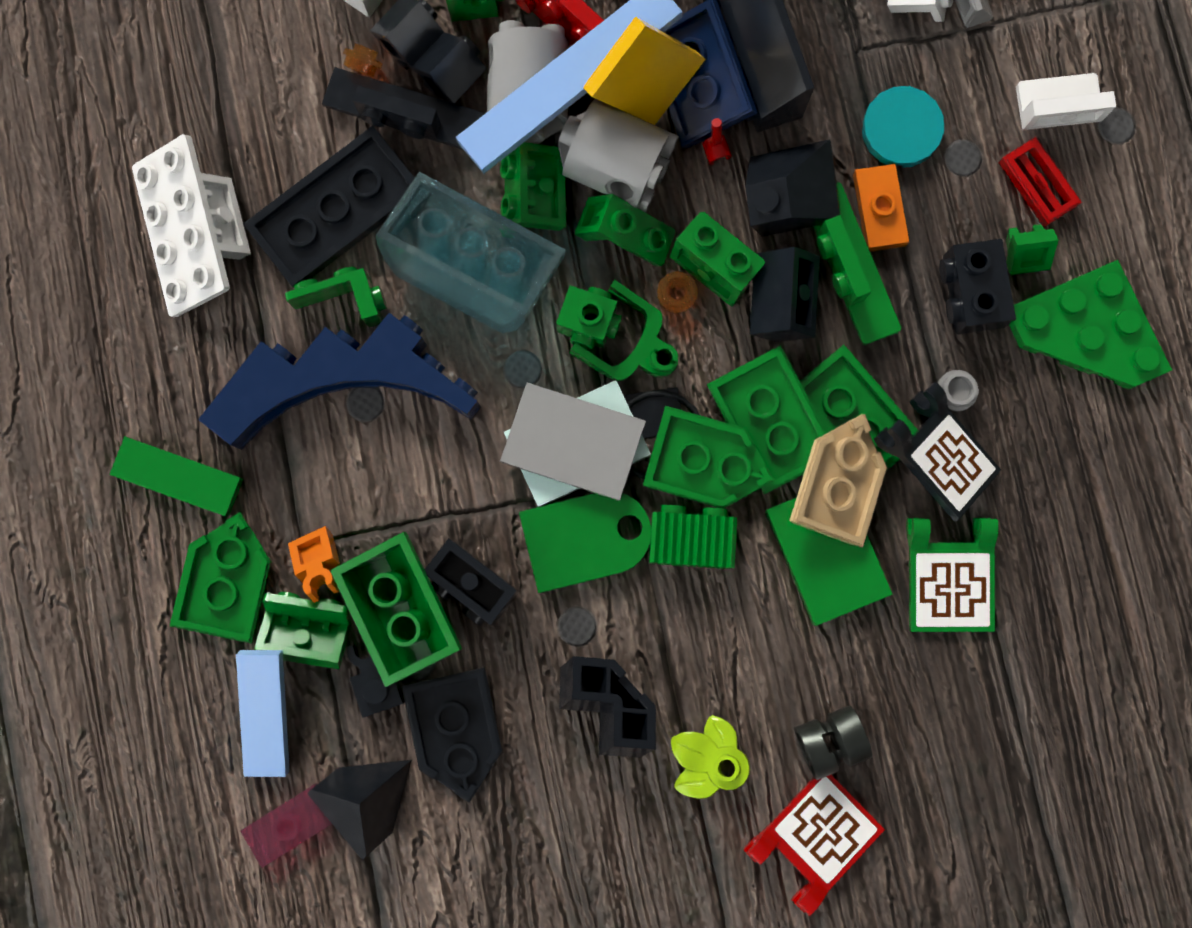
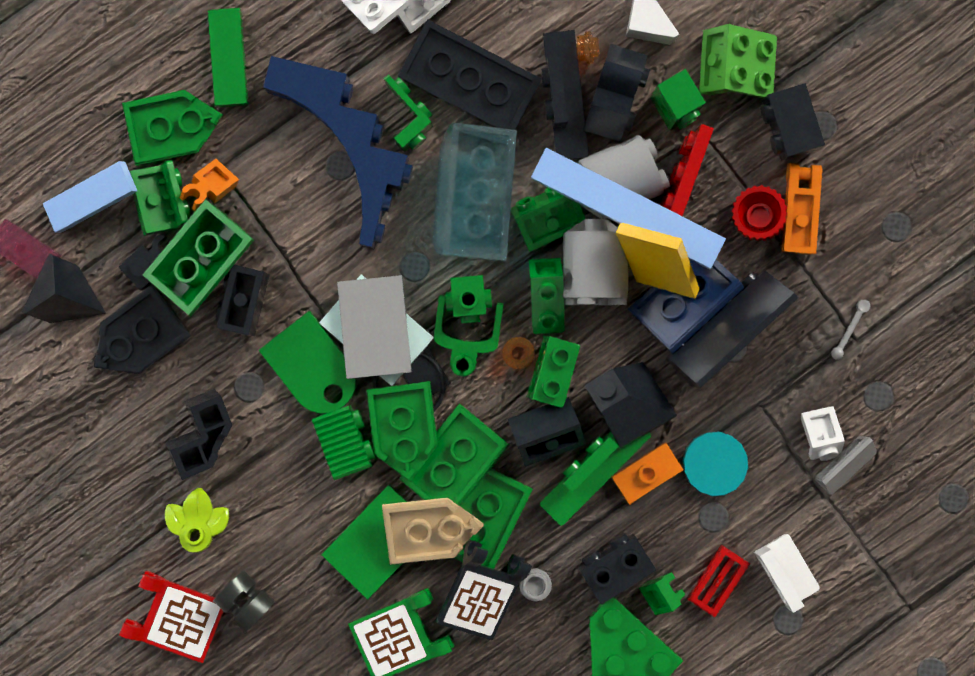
camera: 65 degrees right, 5 degrees up
(716, 146) = (638, 334): red hand -> none

